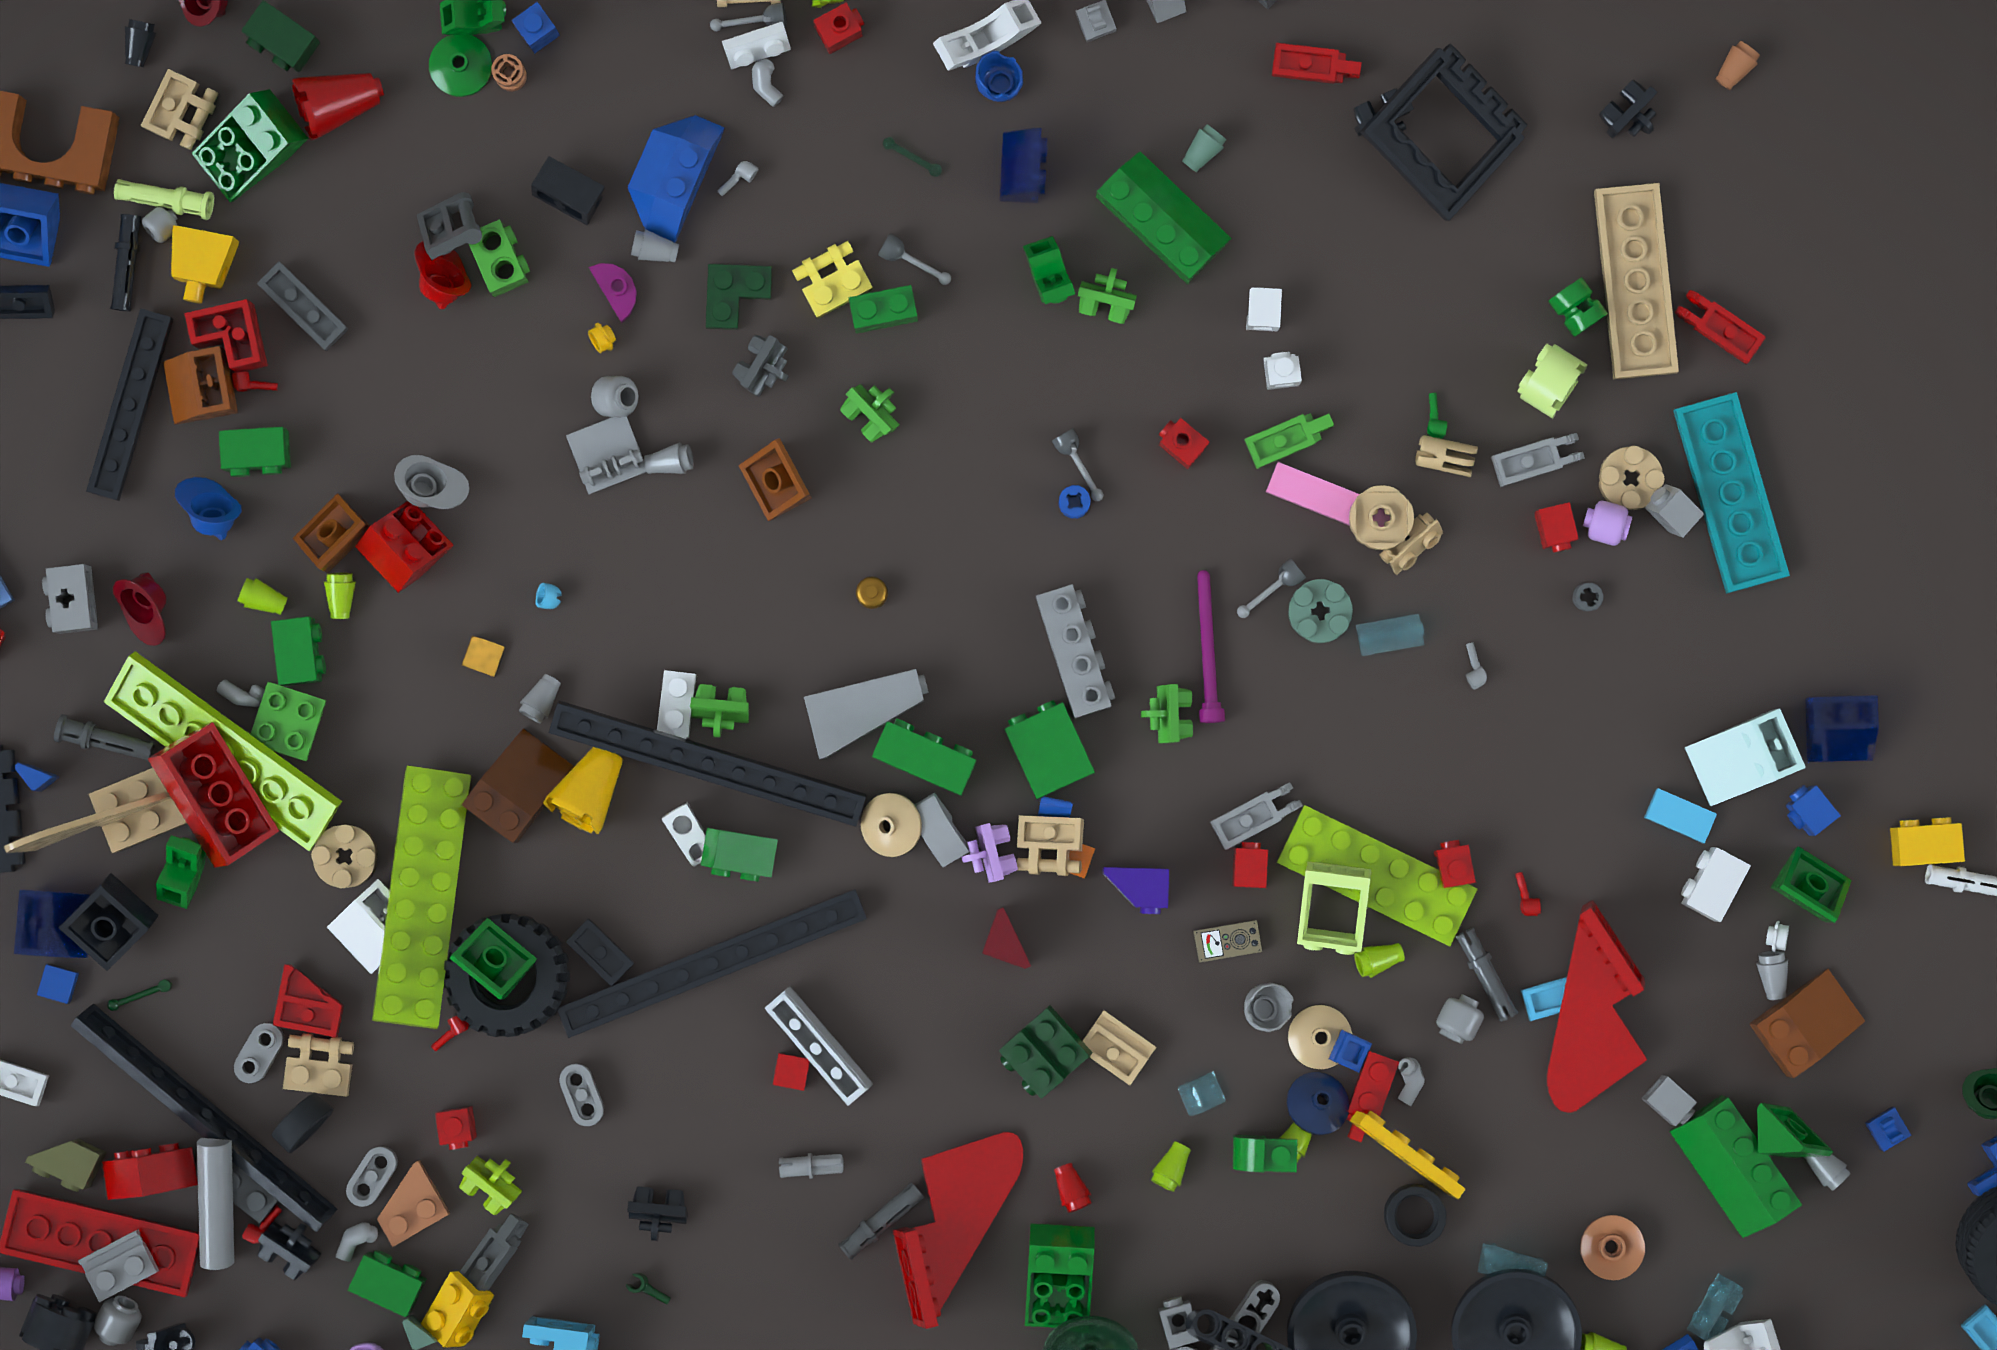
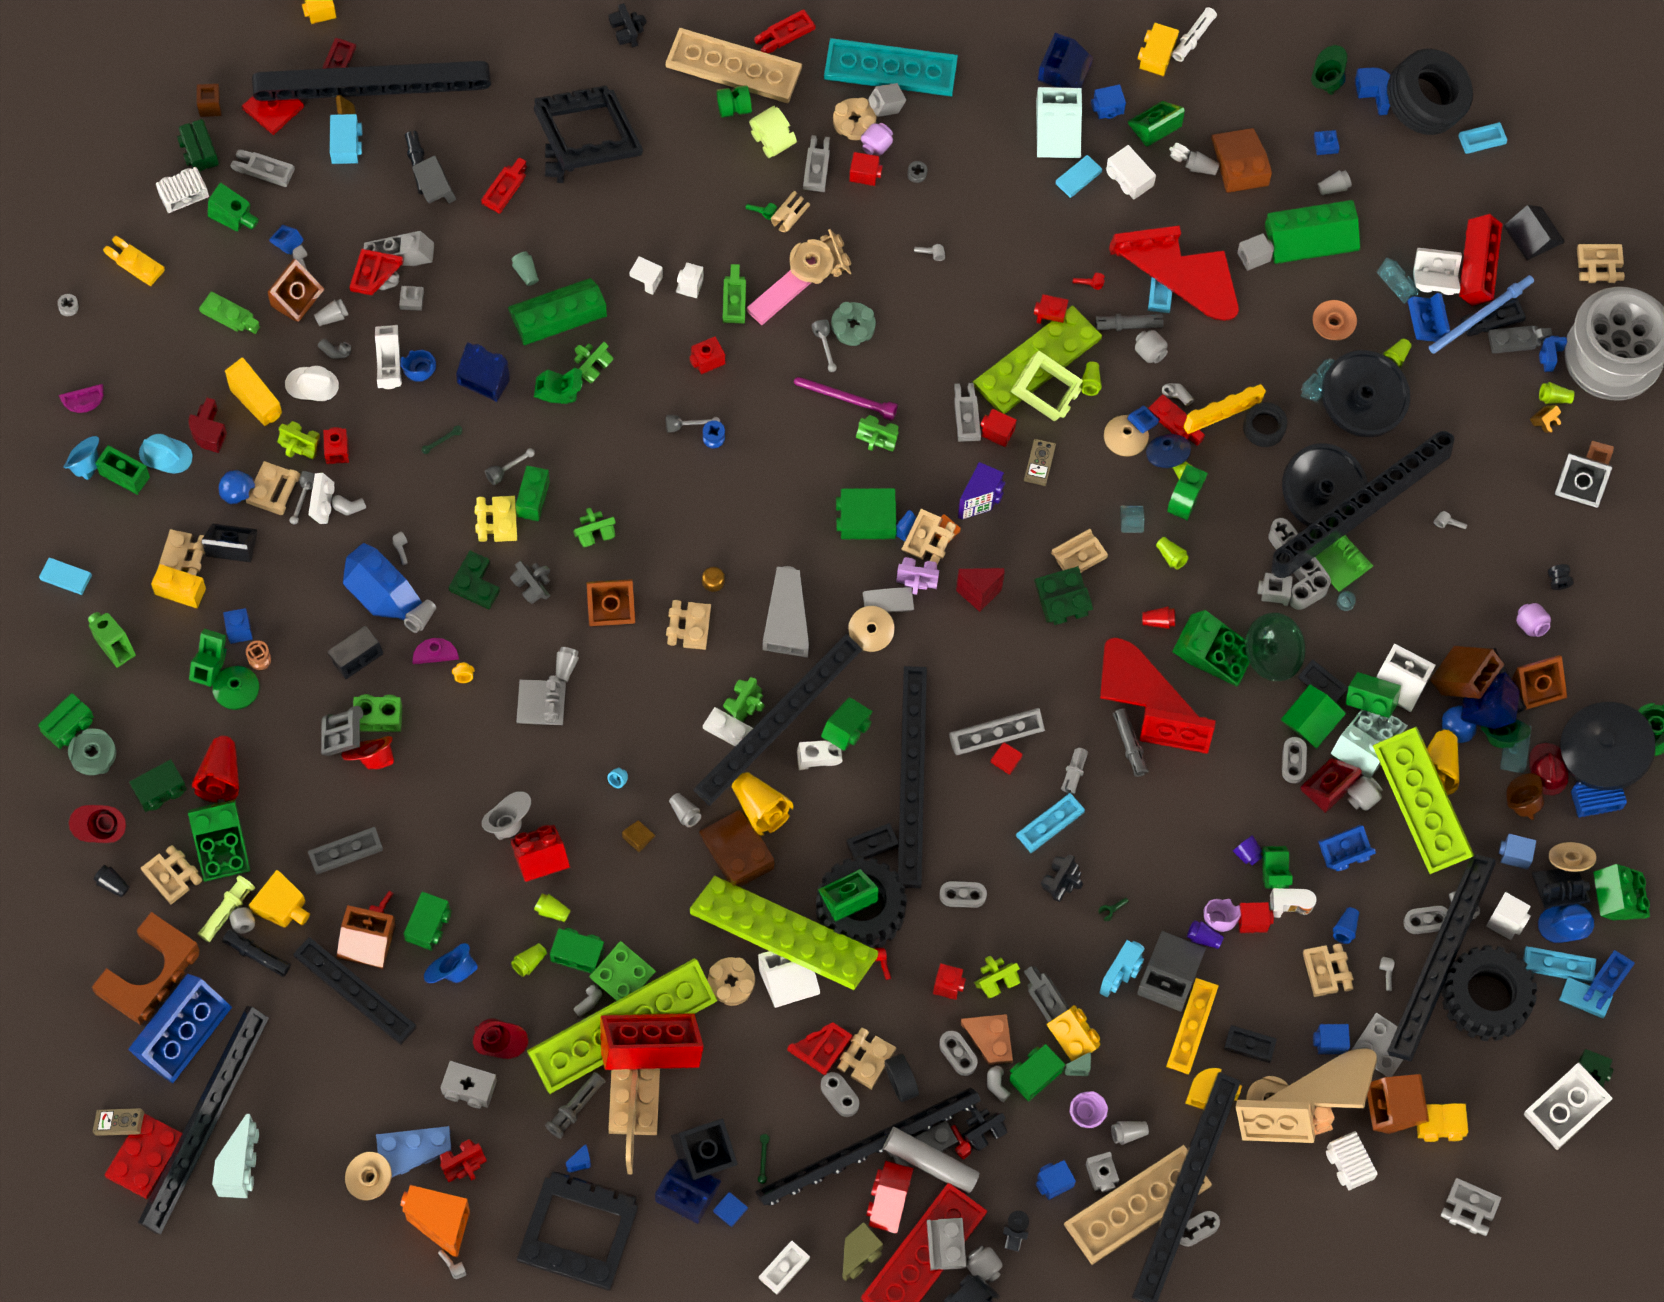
camera: 70 degrees left, 20 degrees down
(181, 872) = (690, 1088): green brick -> none
(231, 325) = (334, 898): red brick -> none
(331, 533) = (508, 895): dark orange slope -> none
(614, 396) = (507, 677): light grey head -> none
(729, 1163) = (1050, 823): none -> medium azure tile
(798, 600) = (696, 627): none -> tan plate
(925, 756) = (838, 584): green brick -> none
(1073, 650) = (809, 472): light grey brick -> none
(1268, 1006) = (1092, 452): light grey hair -> none
(1390, 634) = (888, 289): clear light blue hinge -> none
(1786, 1134) = (1309, 191): green slope -> none

